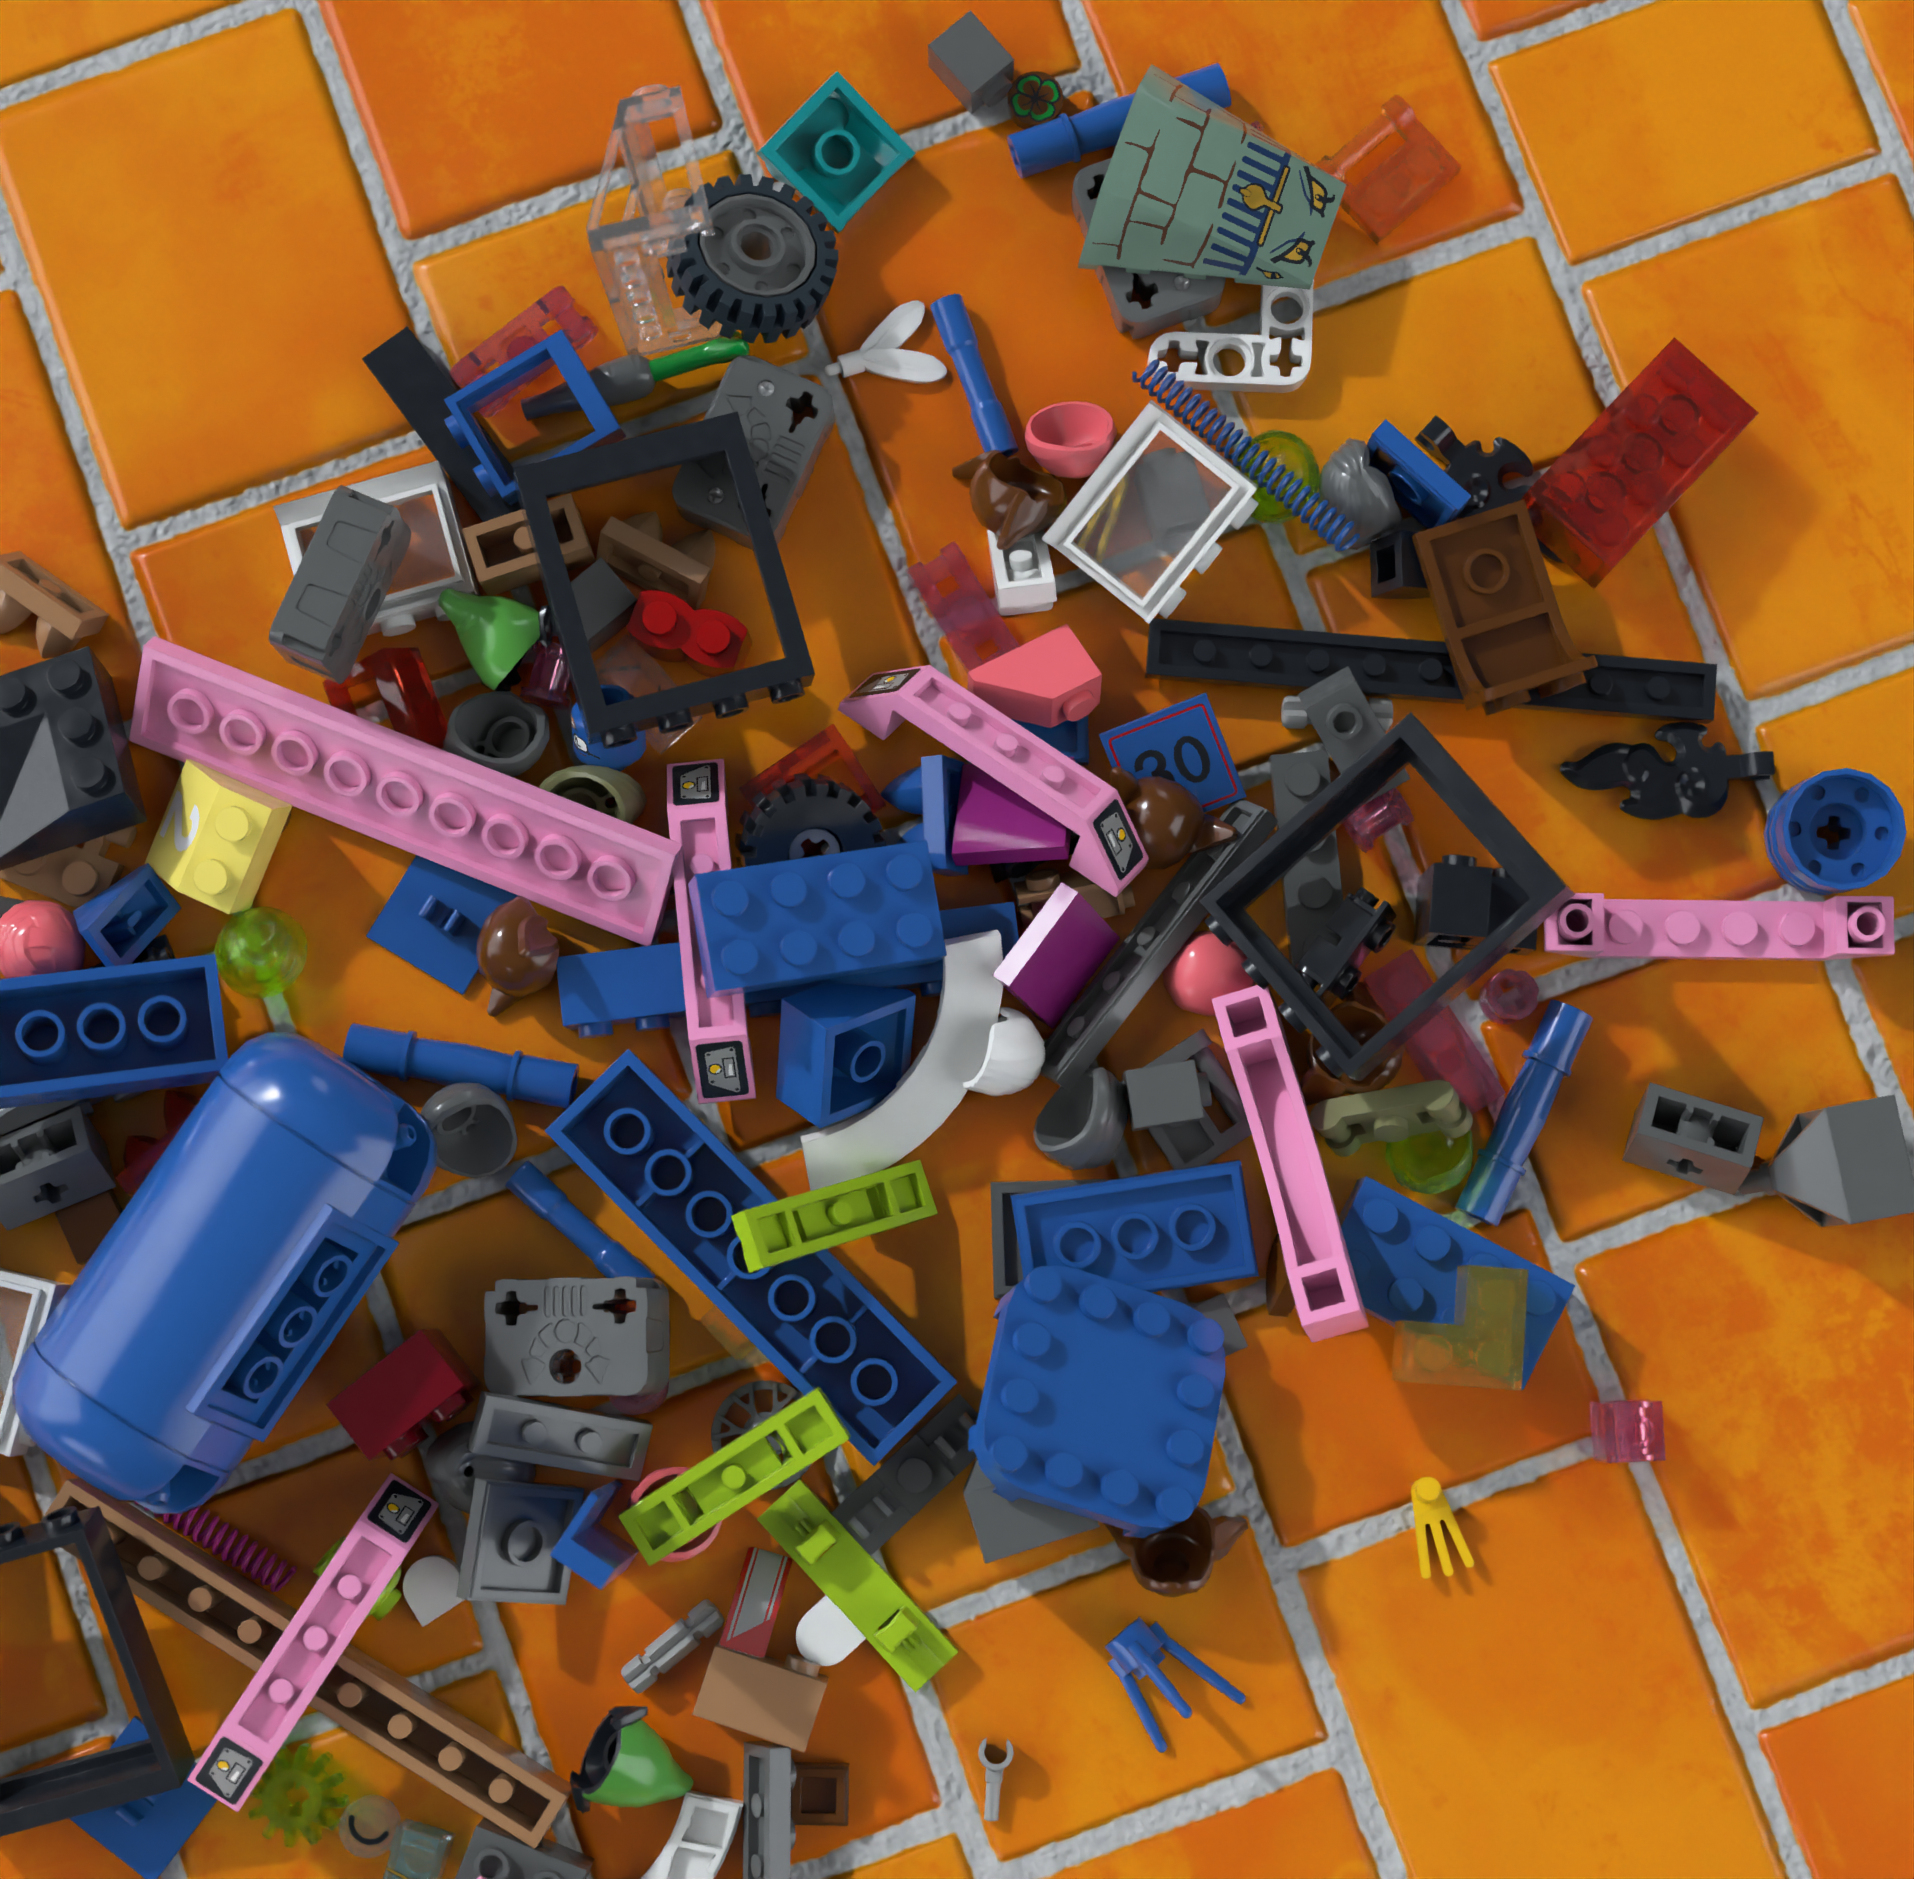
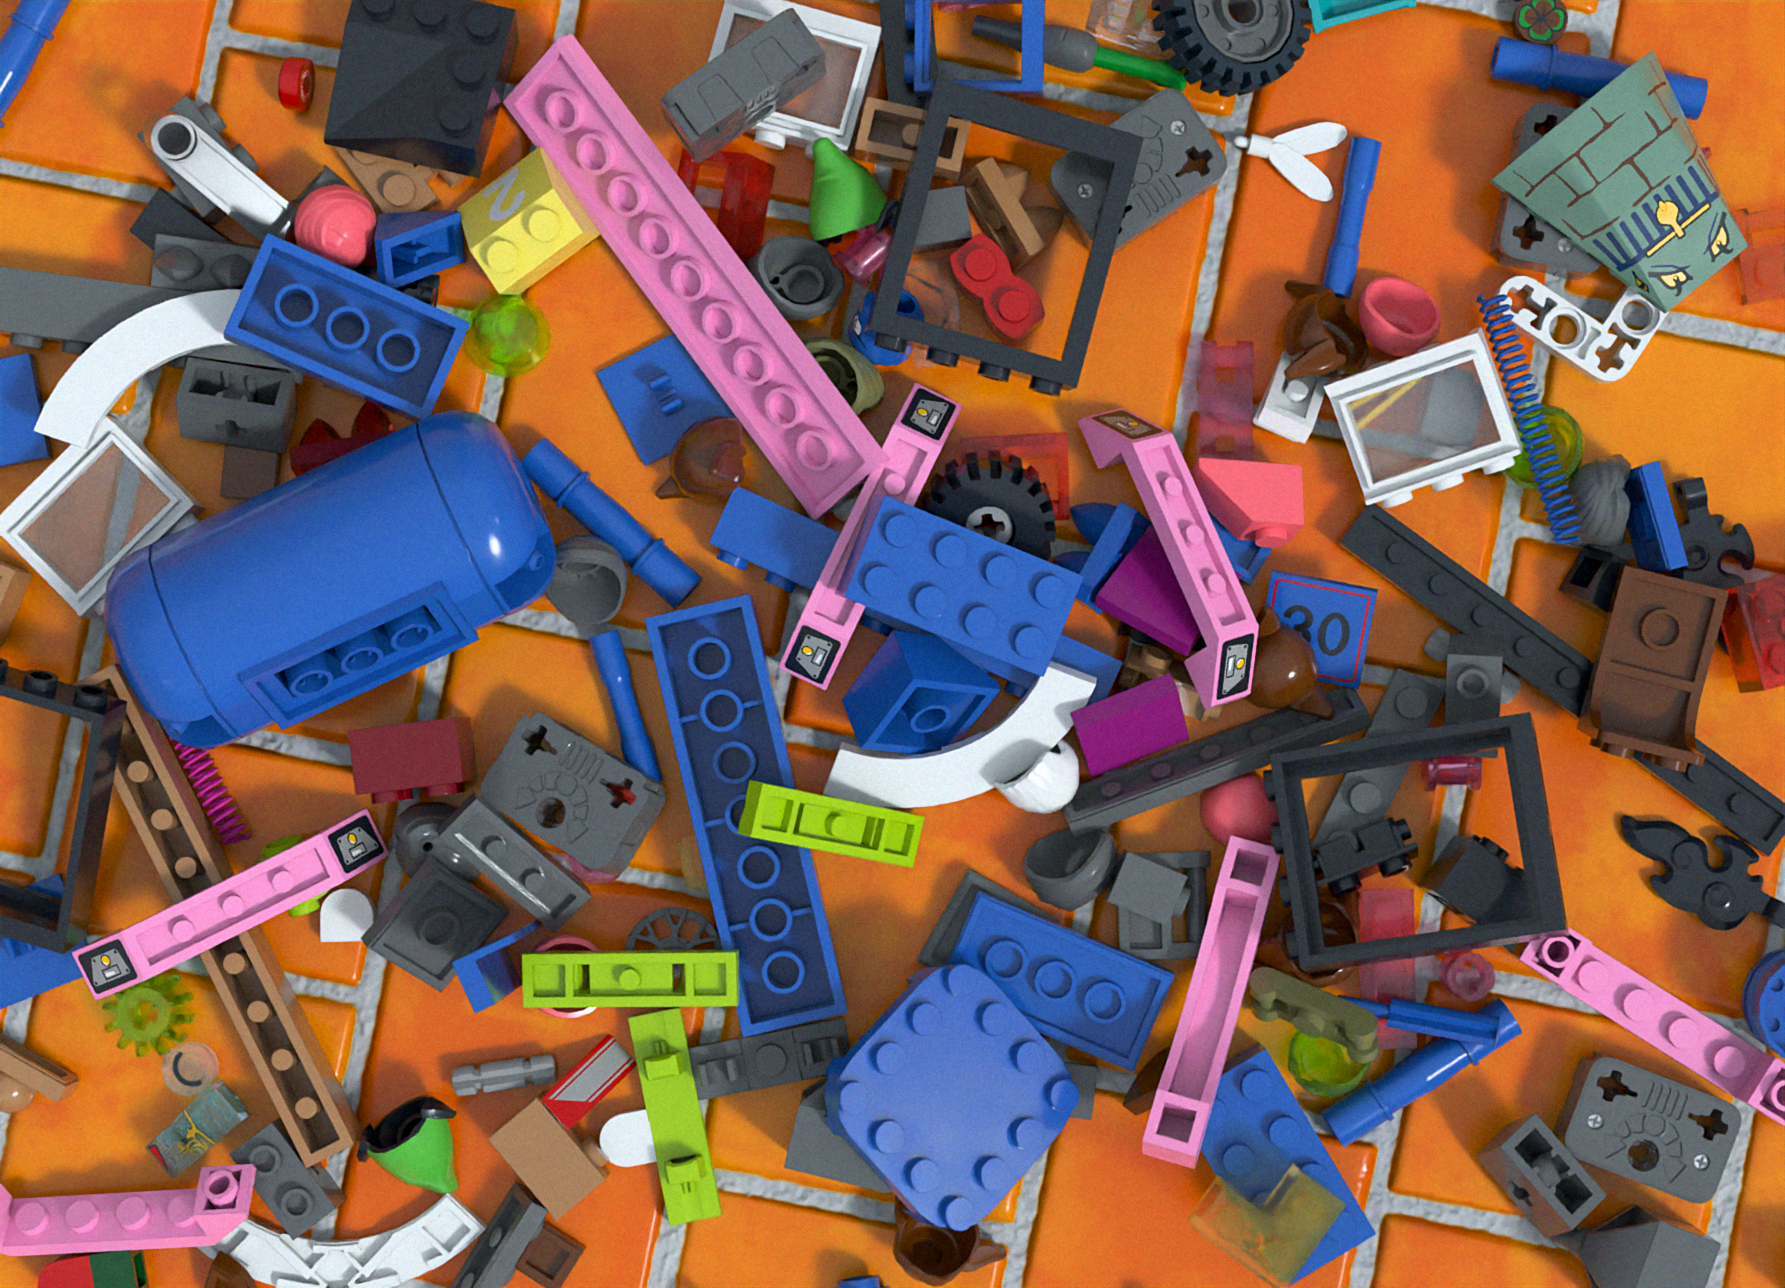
camera: 35 degrees right, 5 degrees up
(1507, 1053) = (1434, 1020): none -> blue axle
(1756, 1014) = (1679, 1154): none -> dark grey axle

